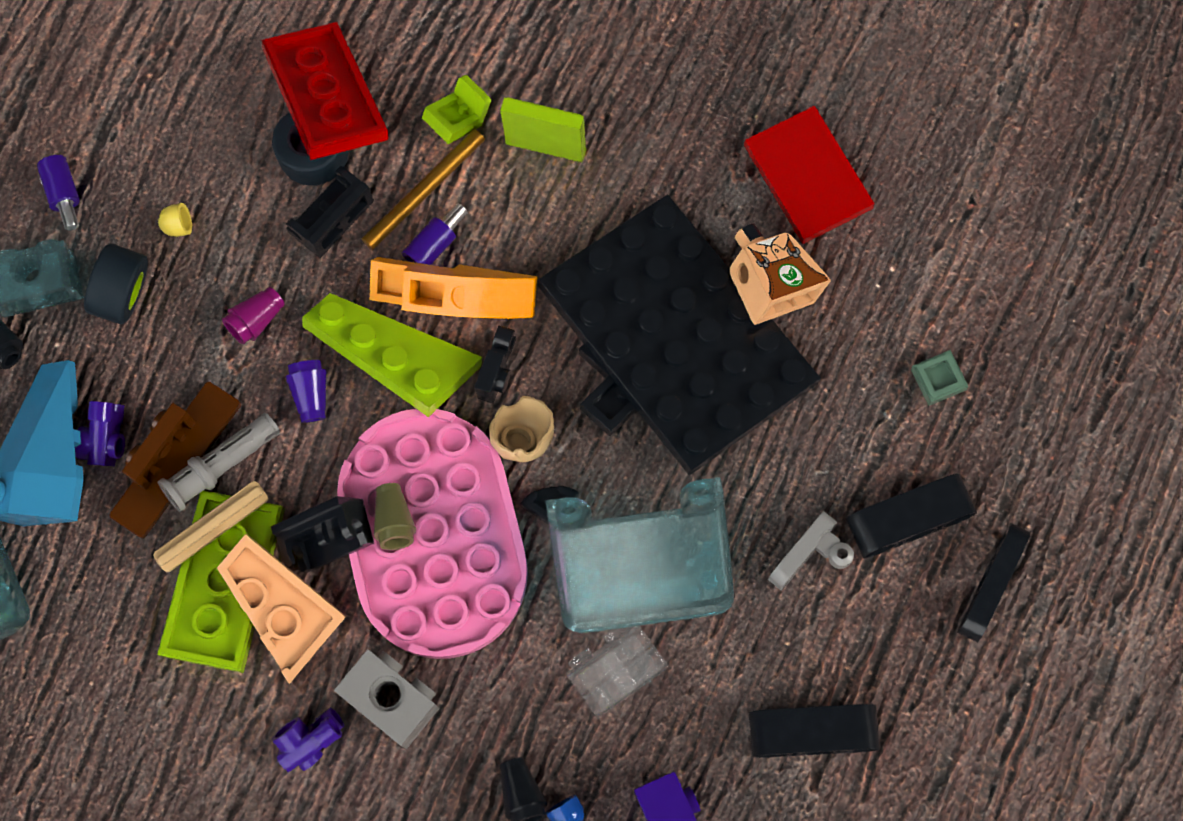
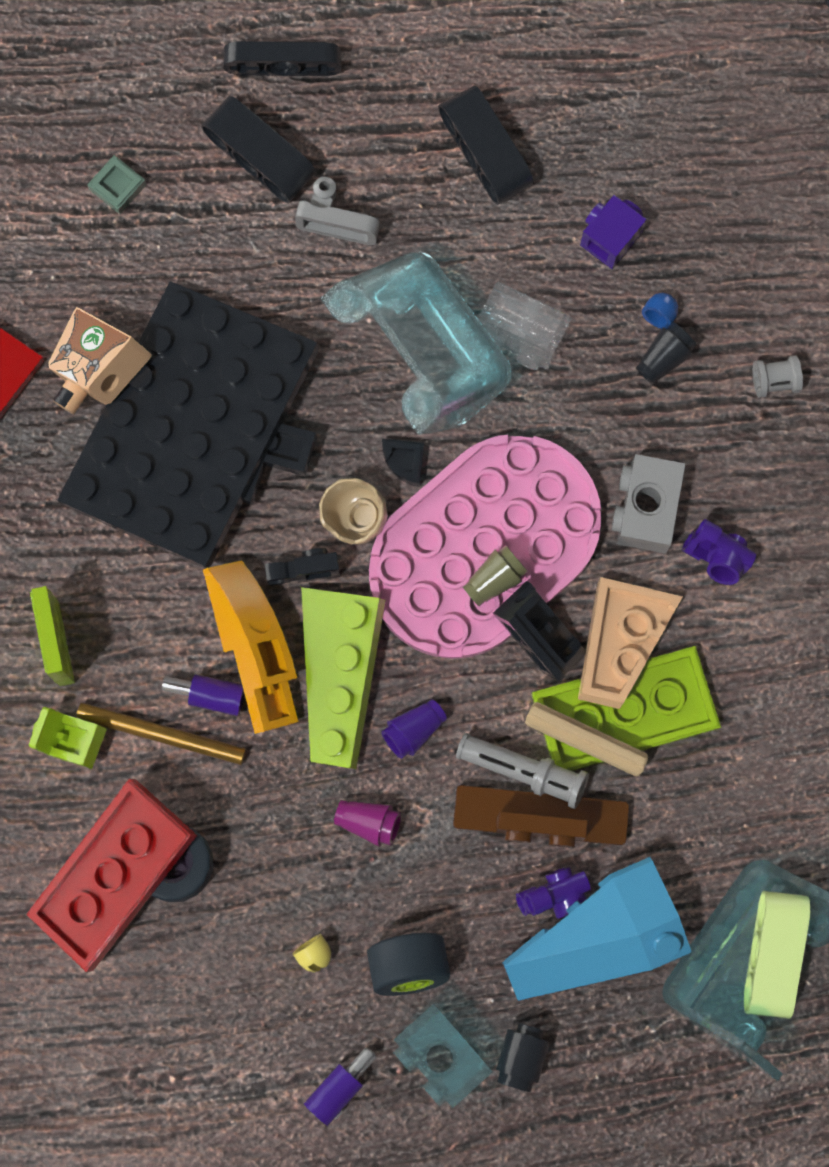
camera: 125 degrees left, 5 degrees up
(331, 213) = (229, 808): black hinge -> none

